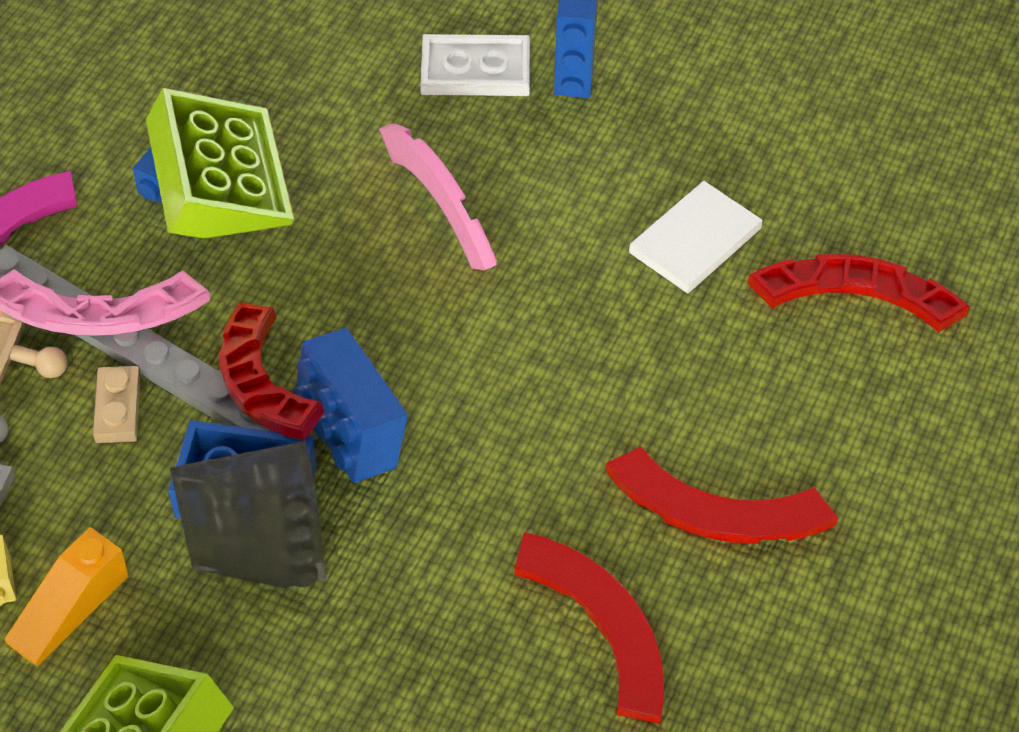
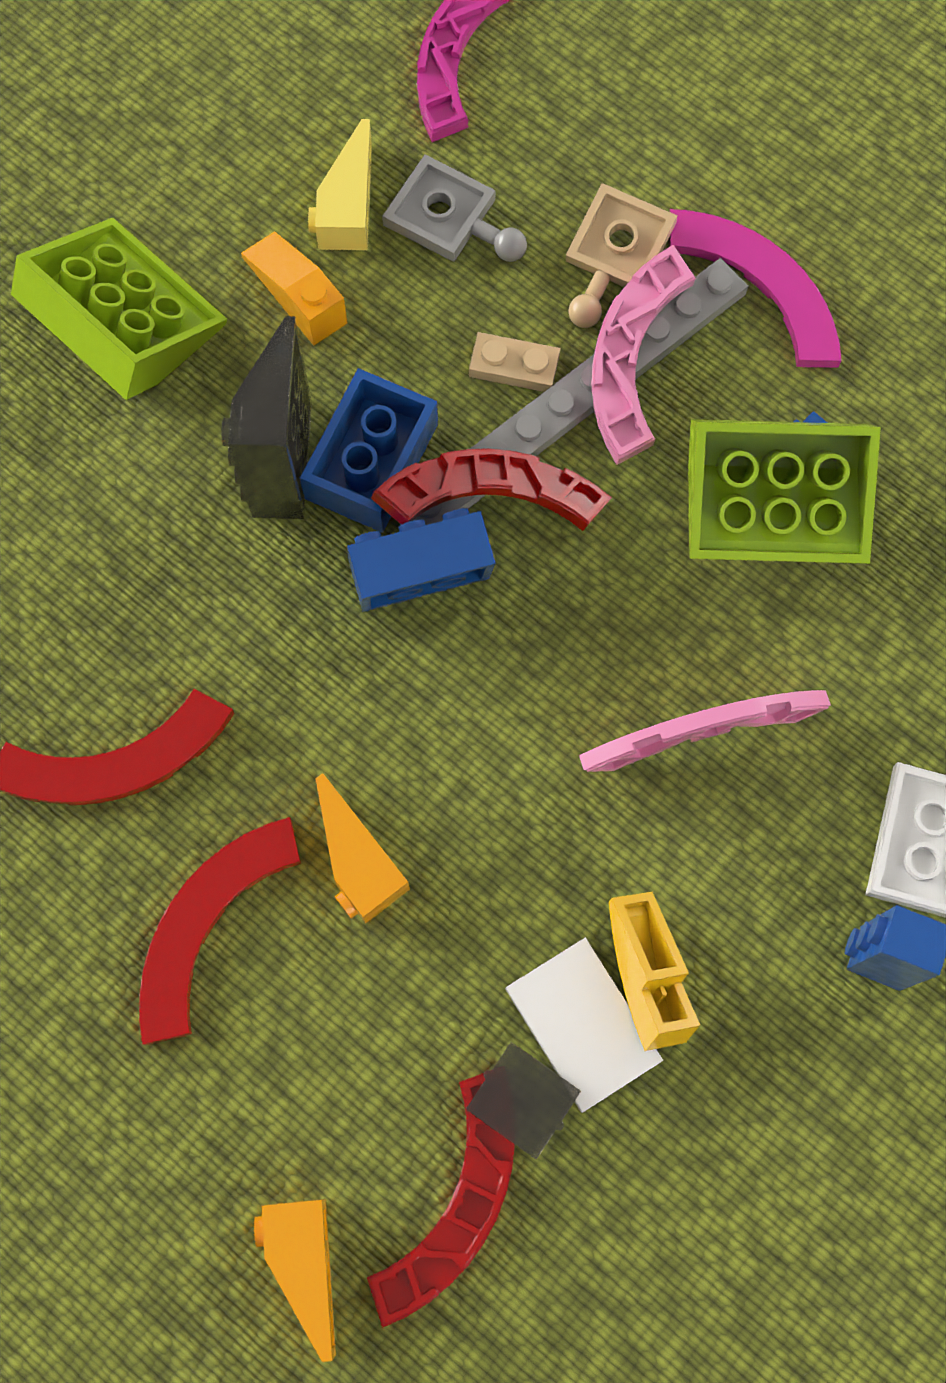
camera: 105 degrees right, 20 degrees up
(623, 406) = (358, 862): none -> light orange slope
(642, 194) = (651, 972): none -> yellow slope
(769, 254) = (523, 1100): none -> clear smoke piece
(945, 365) = (299, 1258): none -> light orange slope

